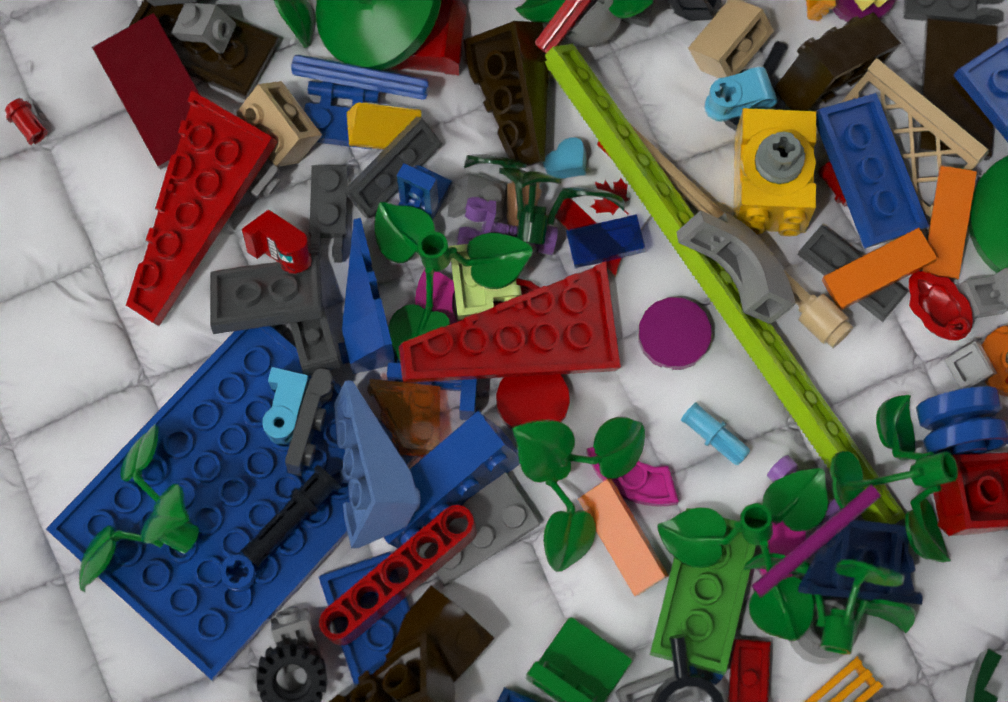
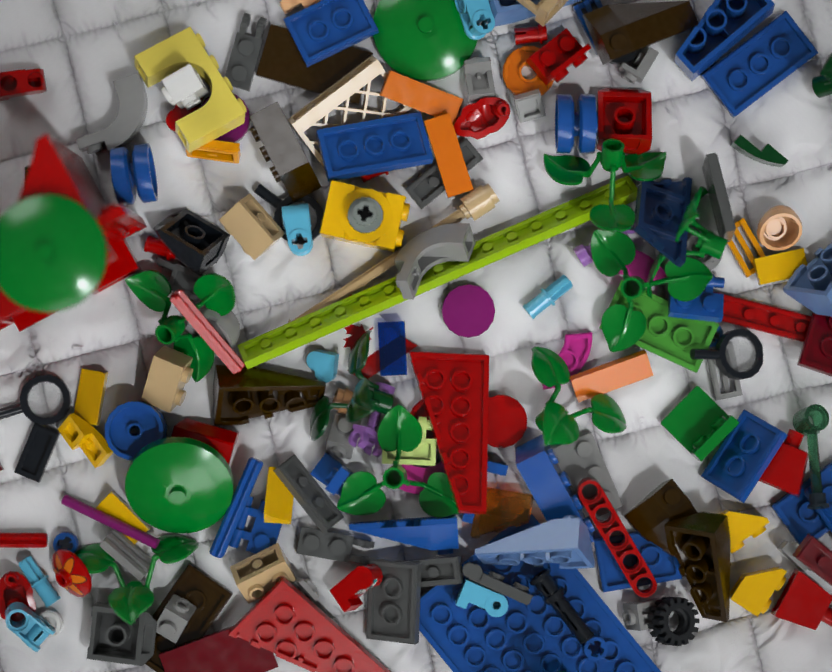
camera: 75 degrees left, 15 degrees up
(747, 644) = (705, 307): none -> blue plate
(816, 541) = (650, 248): magenta bar -> none
(905, 637) = (718, 196): none -> dark grey tile

